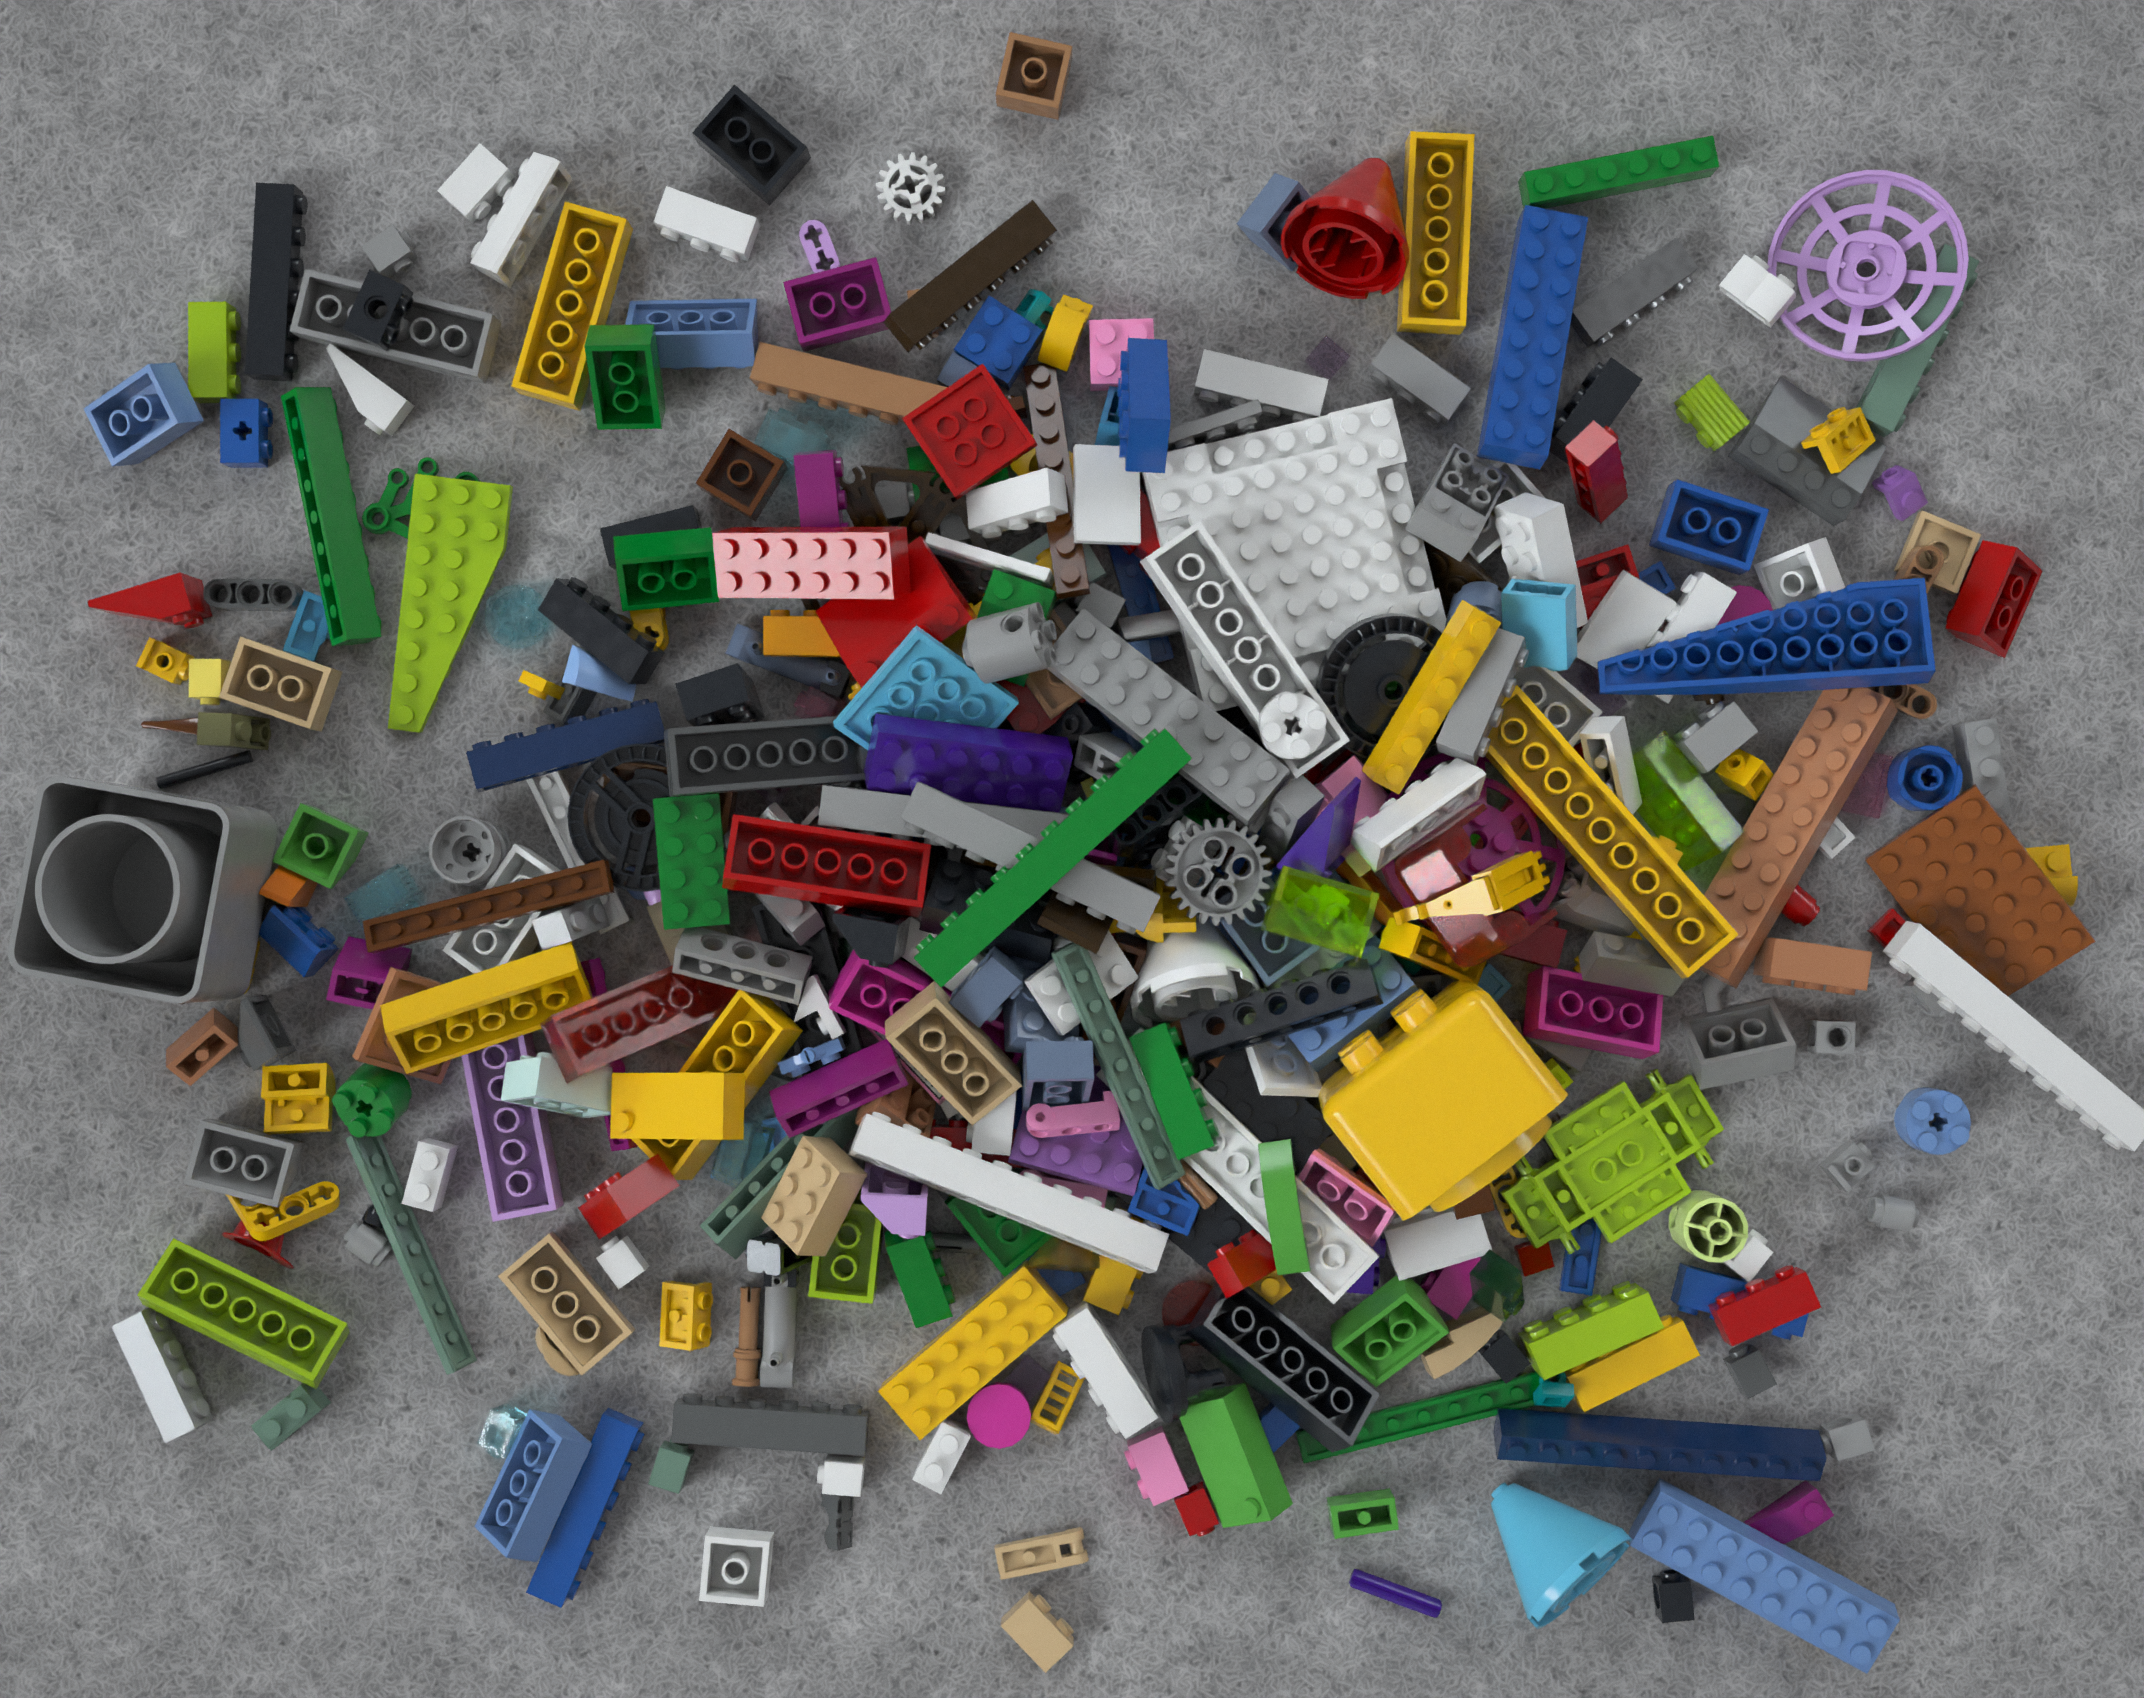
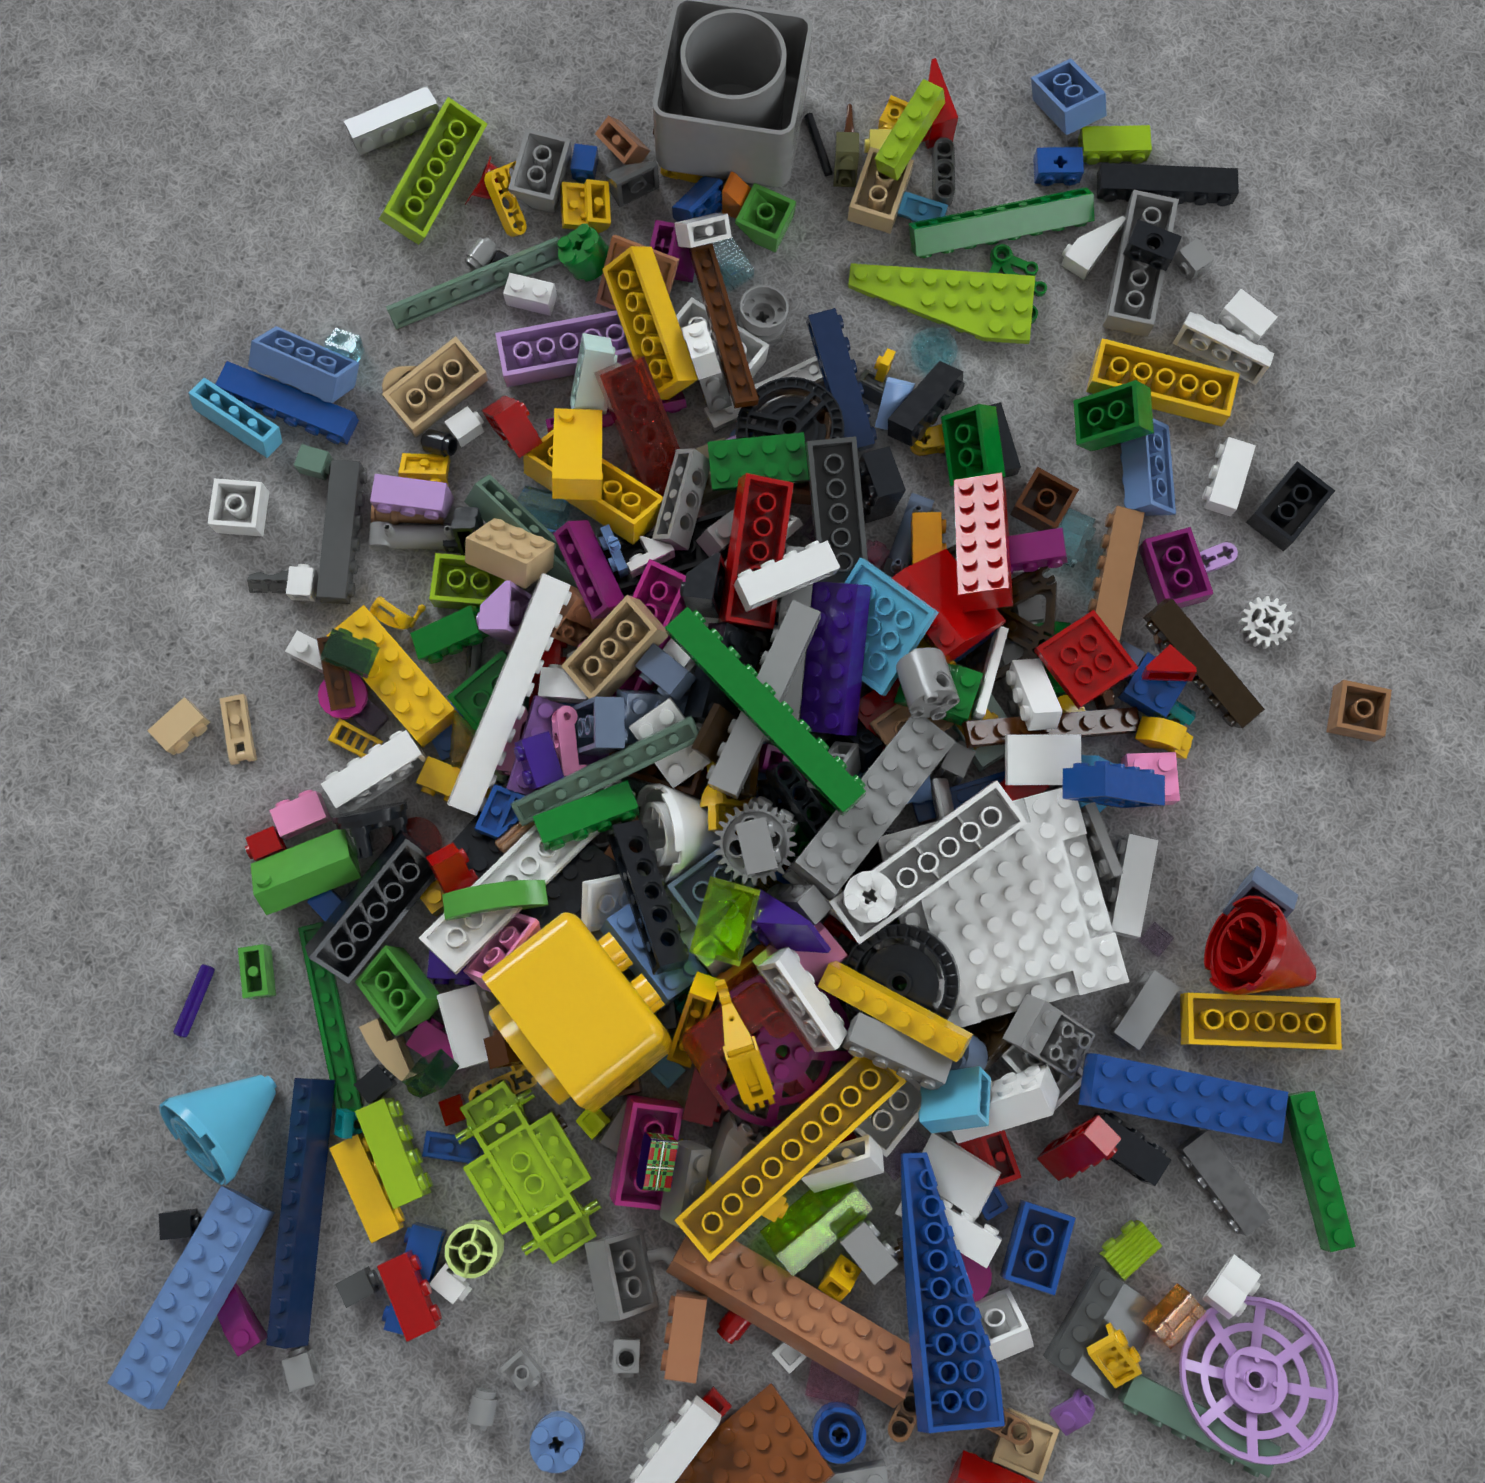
camera: 85 degrees right, 10 degrees down
(201, 640) = (910, 129): none -> lime brick
(232, 1100) = (584, 162): none -> blue brick
(290, 1415) = (360, 204): sand green brick -> none
(345, 933) = (703, 230): none -> white brick
(532, 936) = (701, 350): none -> white brick
(607, 1576) = (235, 417): none -> medium azure brick
(646, 1296) = (439, 443): none -> black brick
(729, 1331) = (411, 496): none -> lavender slope
(865, 826) = (786, 575): none -> white brick
(897, 1340) = (401, 619): none -> yellow helmet
(951, 1405) = (350, 653): none -> clear green brick
(974, 1424) = (337, 683): none -> reddish brown plate
(977, 321) = (1169, 666): none -> red slope
(1100, 1153) = (538, 760): none -> dark purple brick
(1227, 868) = (757, 846): none -> light grey brick
(1610, 999) = (657, 1162): none -> piece
(1791, 363) = (1174, 1316): none -> clear orange brick

